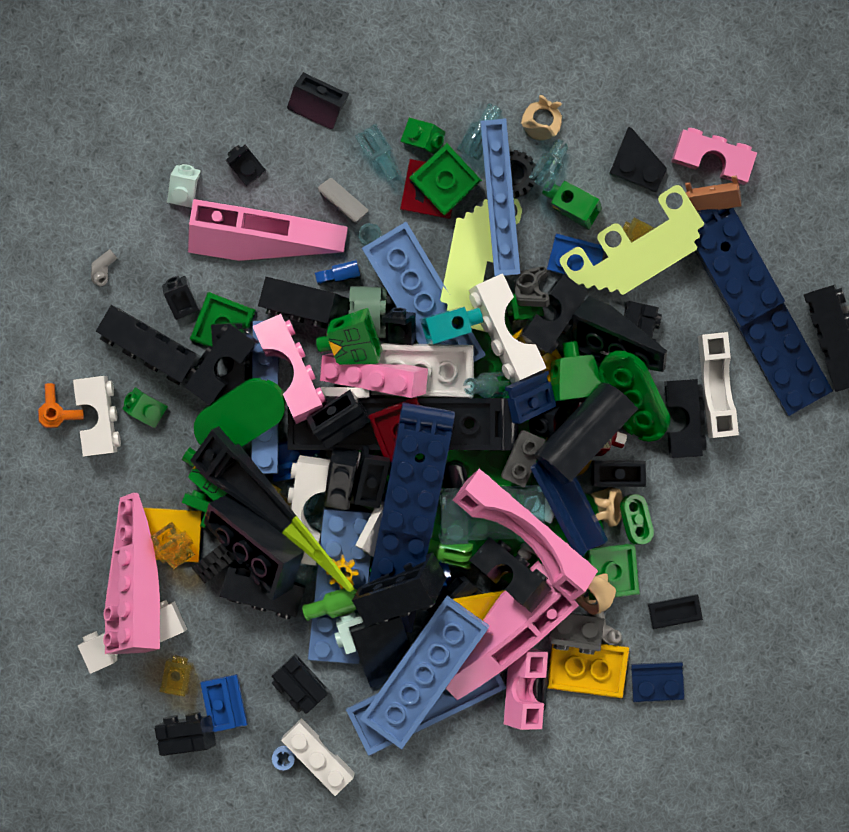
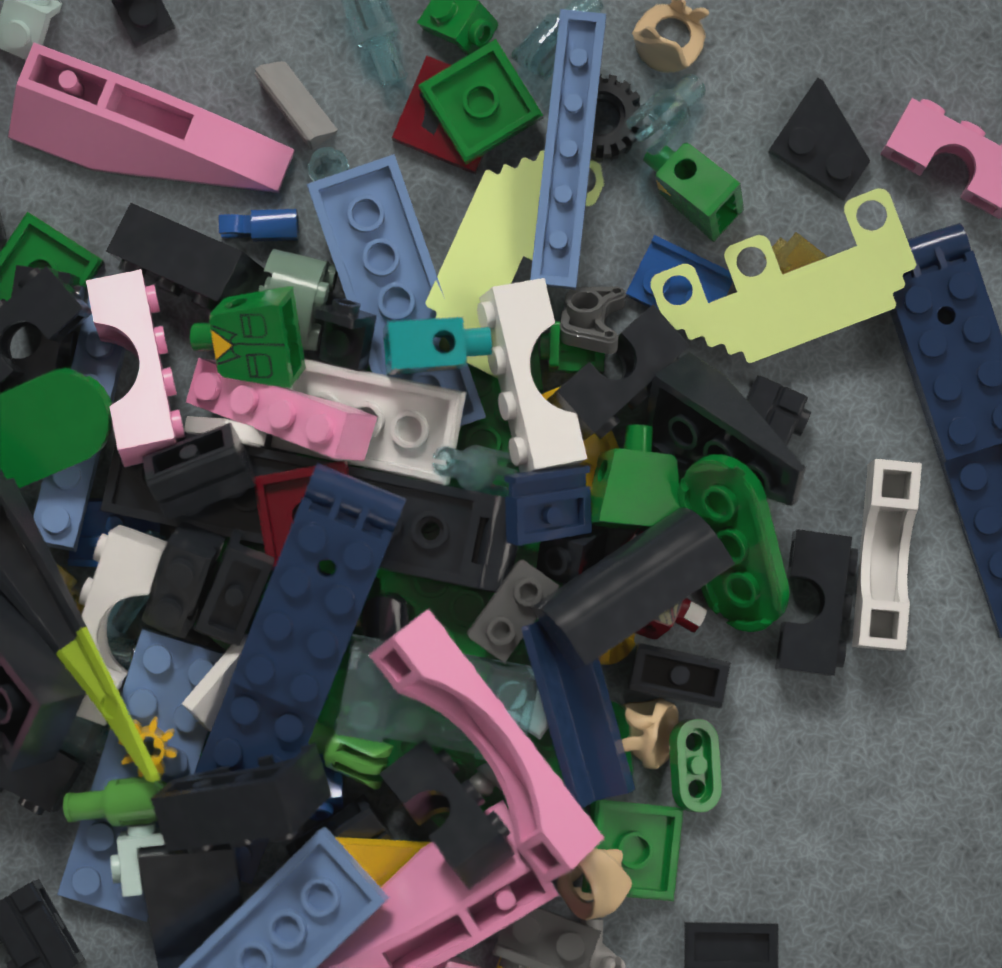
camera: 15 degrees right, 5 degrees down
(715, 196) = (946, 226): nougat hinge -> none

